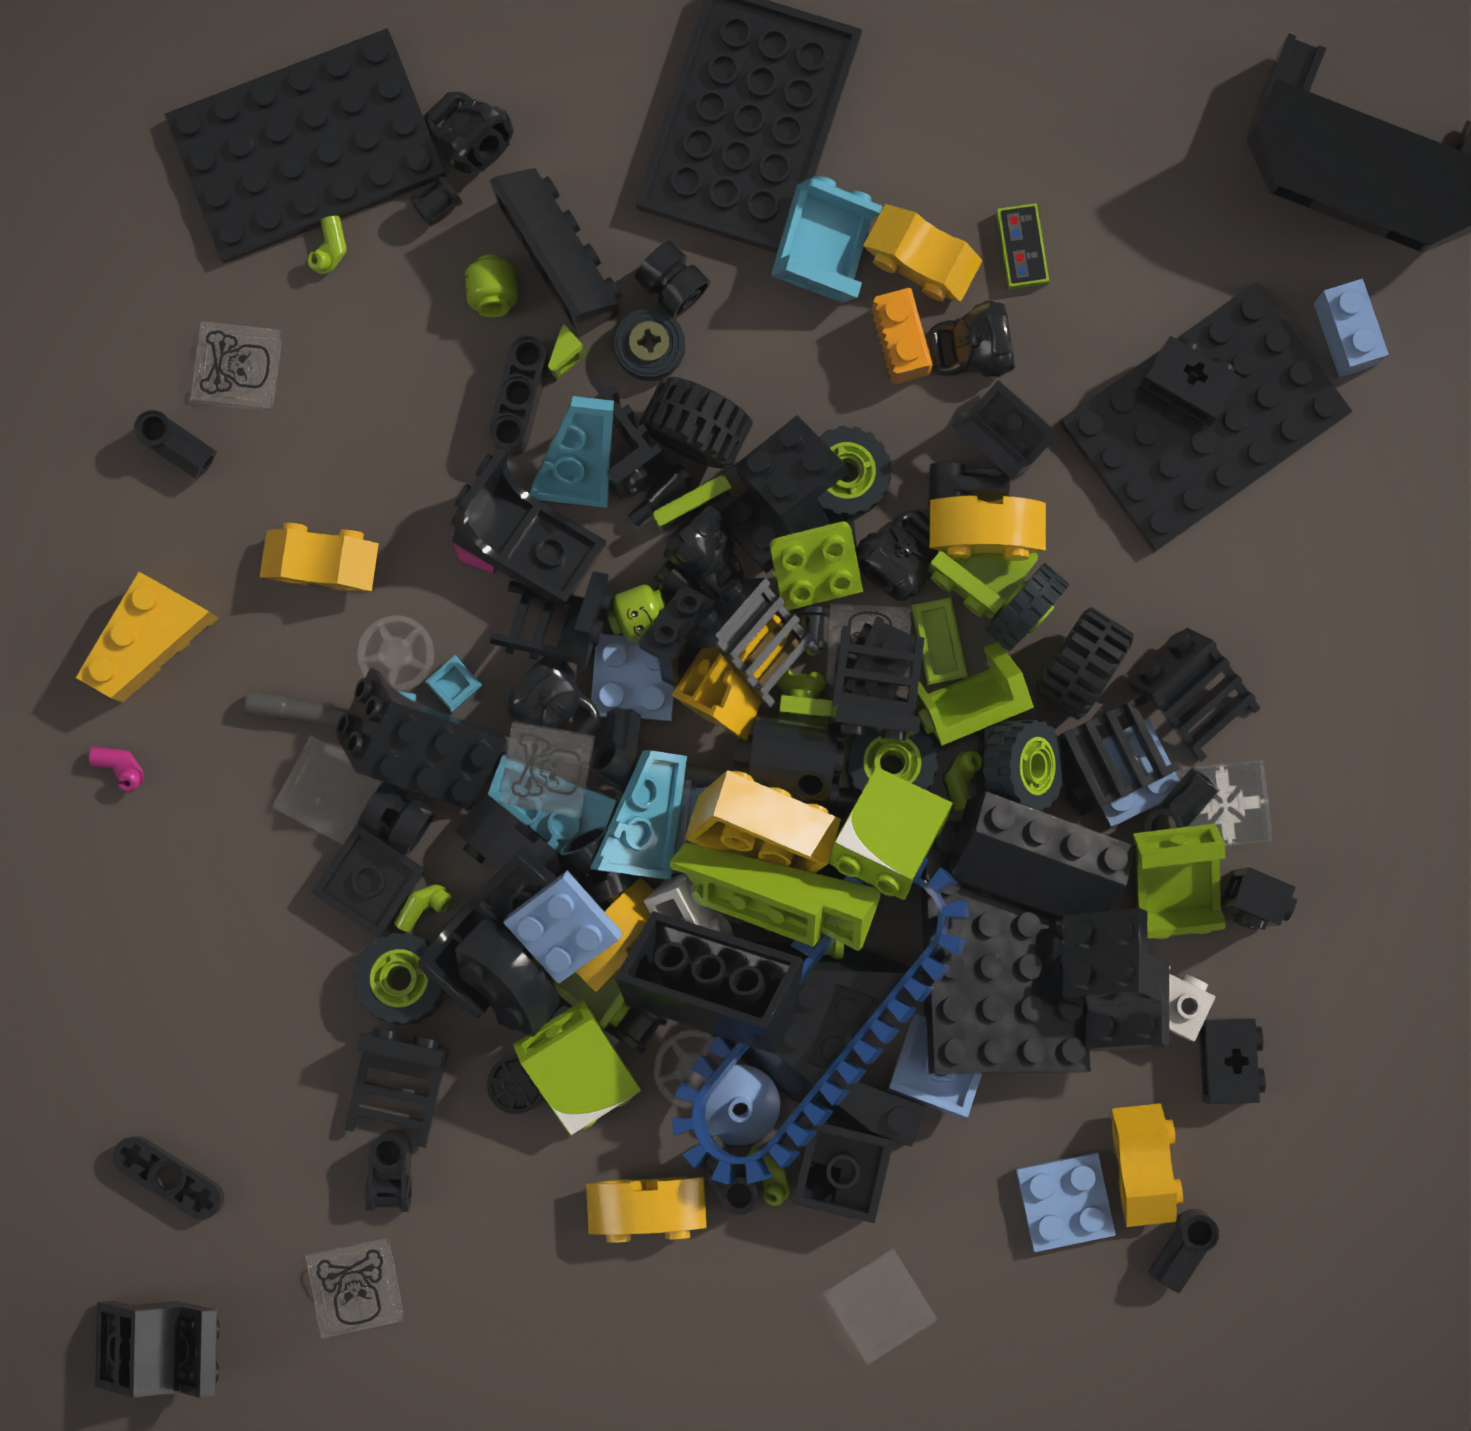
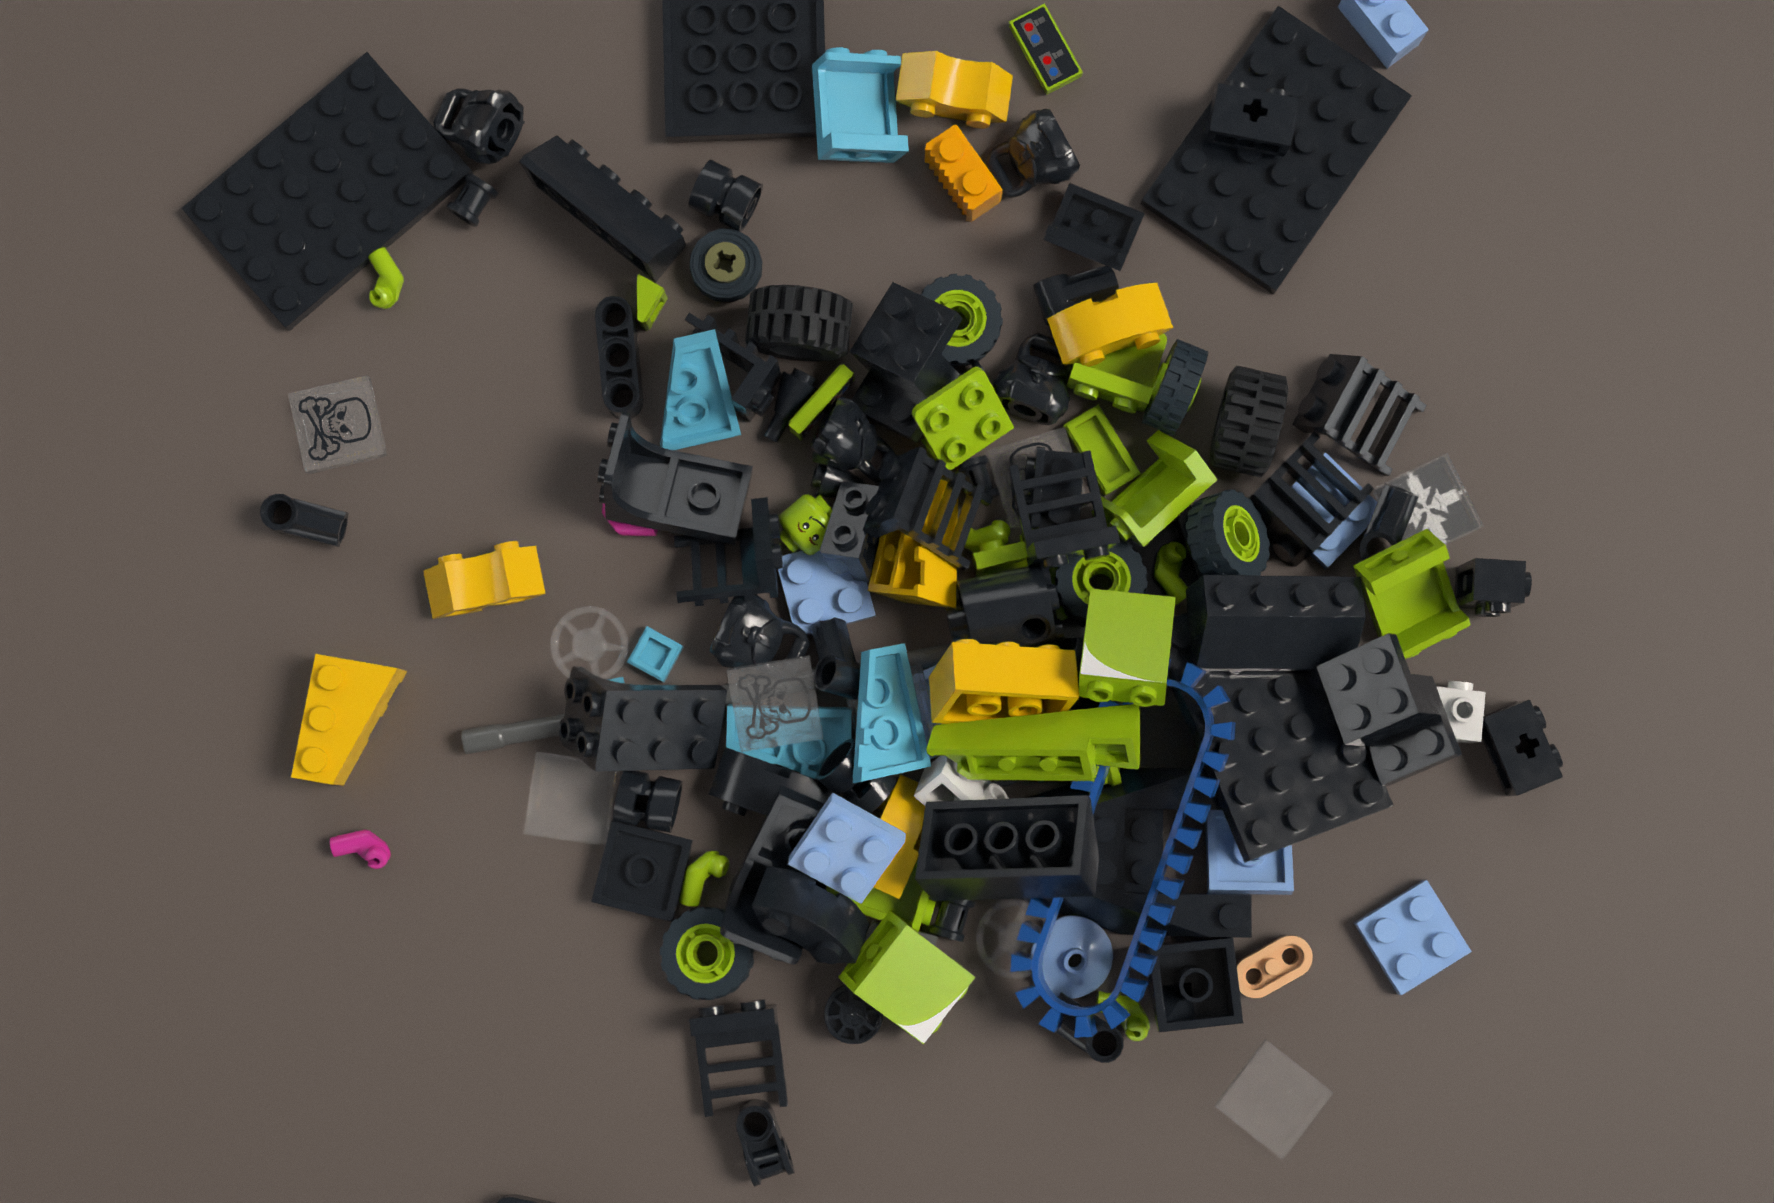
camera: 20 degrees left, 0 degrees up
(491, 286) = (555, 262): lime head -> none
(646, 1207) = (1019, 1086): yellow brick -> none
(922, 1180) = (1272, 968): none -> light nougat plate
(1145, 1168) = (1481, 886): yellow brick -> none
(1181, 1254) = (1540, 947): black piece -> none

